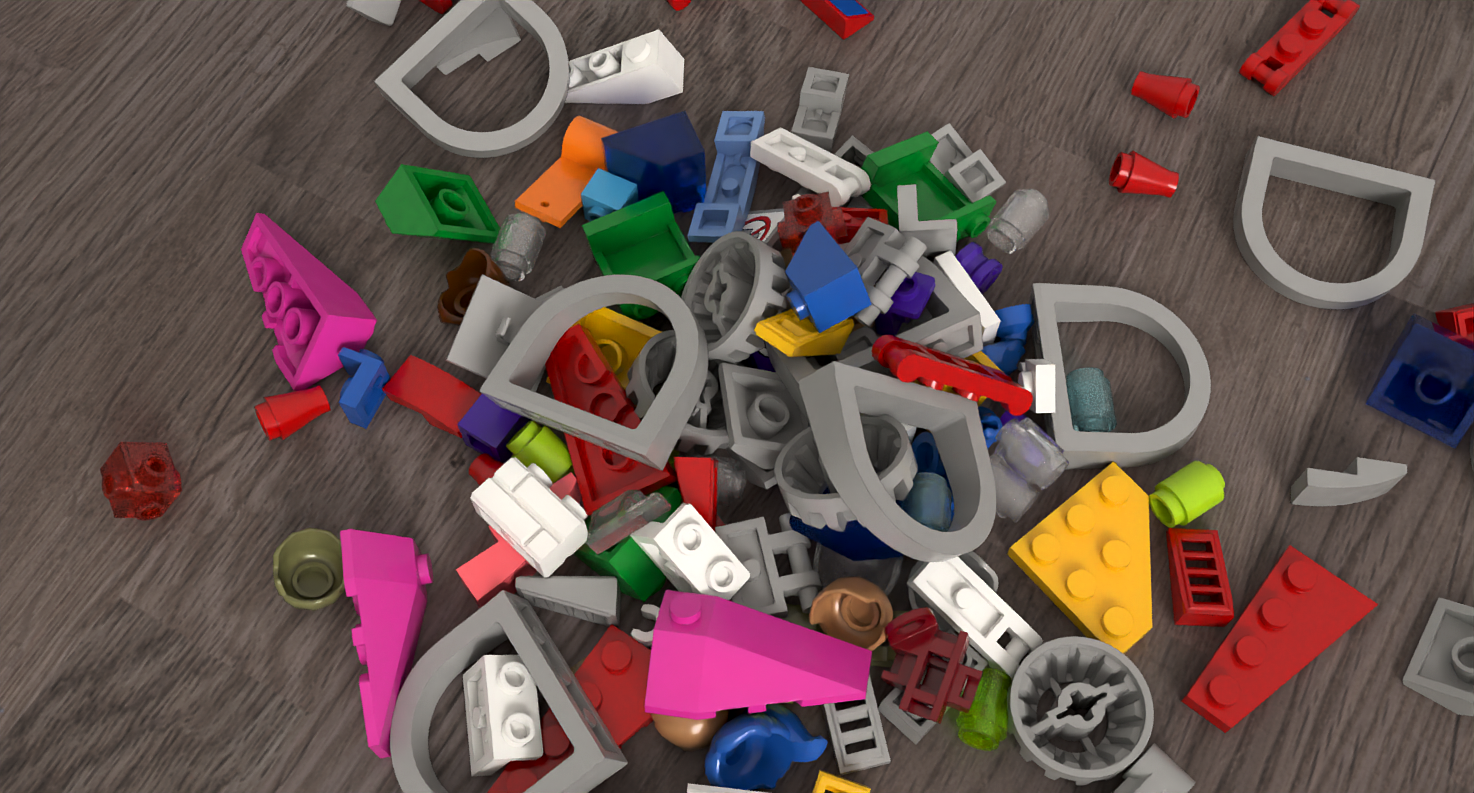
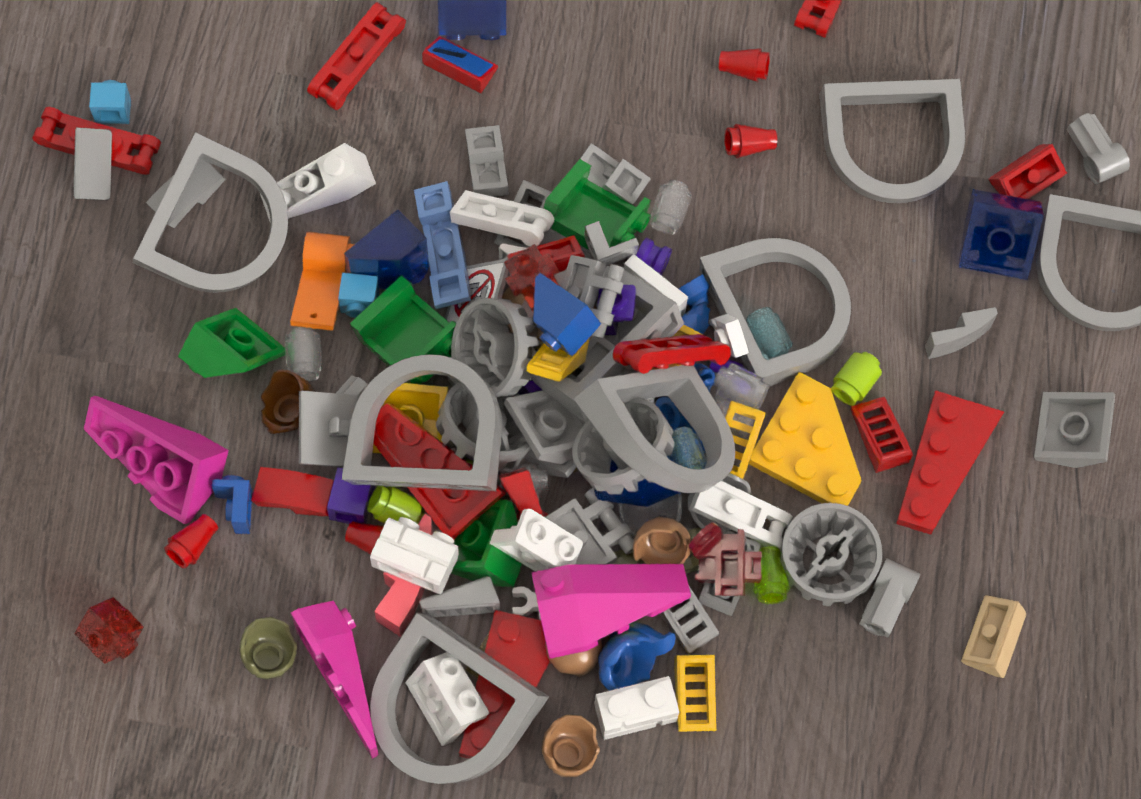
camera: 25 degrees left, 5 degrees up
(623, 517) = (480, 532): clear tile -> none
(1017, 527) = (754, 430): none -> yellow slope

